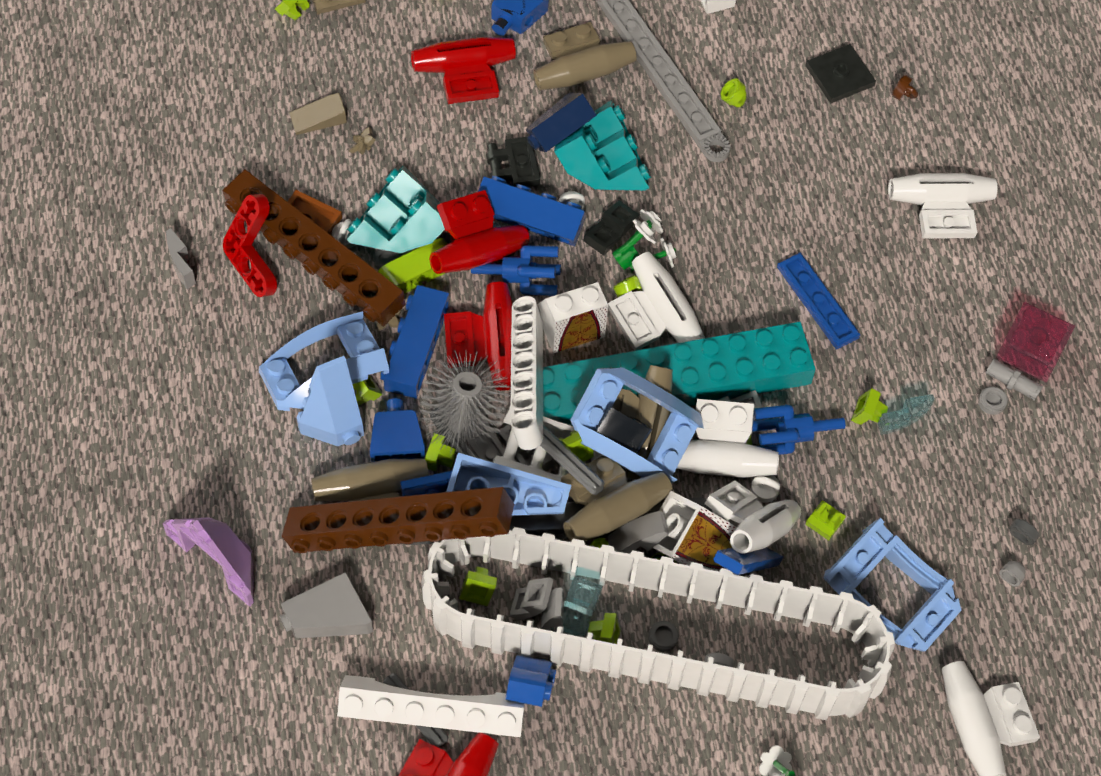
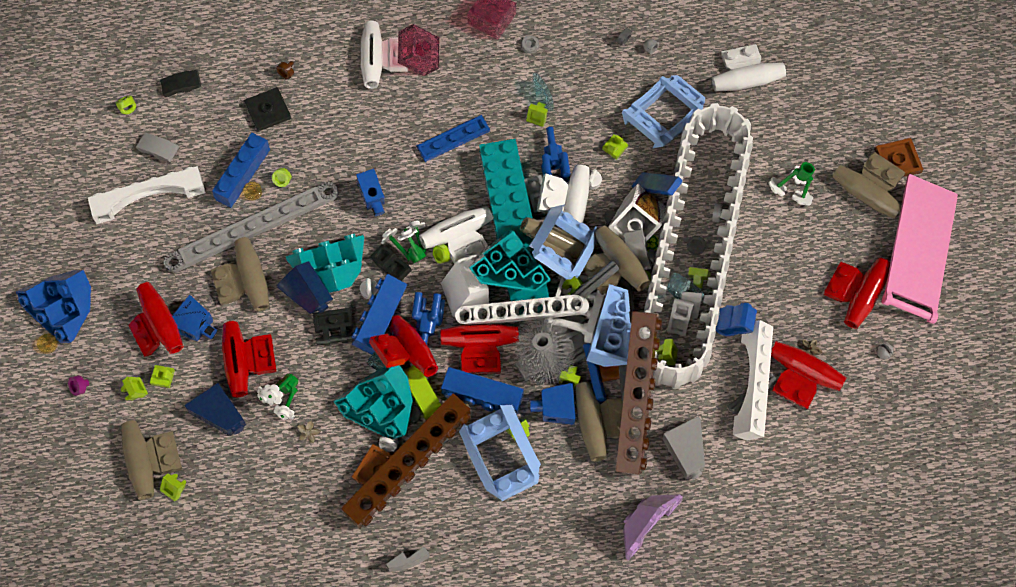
camera: 85 degrees left, 5 degrees up
(239, 248) = (404, 511): red beam -> none
(319, 114) = (280, 464): dark tan slope -> none
(331, 407) = (545, 440): light blue wedge -> none
(391, 41) = (217, 410): none -> dark blue slope
(427, 112) = (275, 392): none -> plant
(588, 340) = (509, 265): none -> teal brick
(623, 429) = (571, 248): black panel -> none
(712, 63) = (252, 191): none -> clear yellow tile
(716, 193) = (370, 186): none -> blue torso
(739, 44) = (241, 170): none -> blue brick
(758, 524) = (625, 177): white plate -> none
(952, 240) = (418, 50): none -> clear pink brick
(1014, 379) = (516, 30): light grey pin -> none

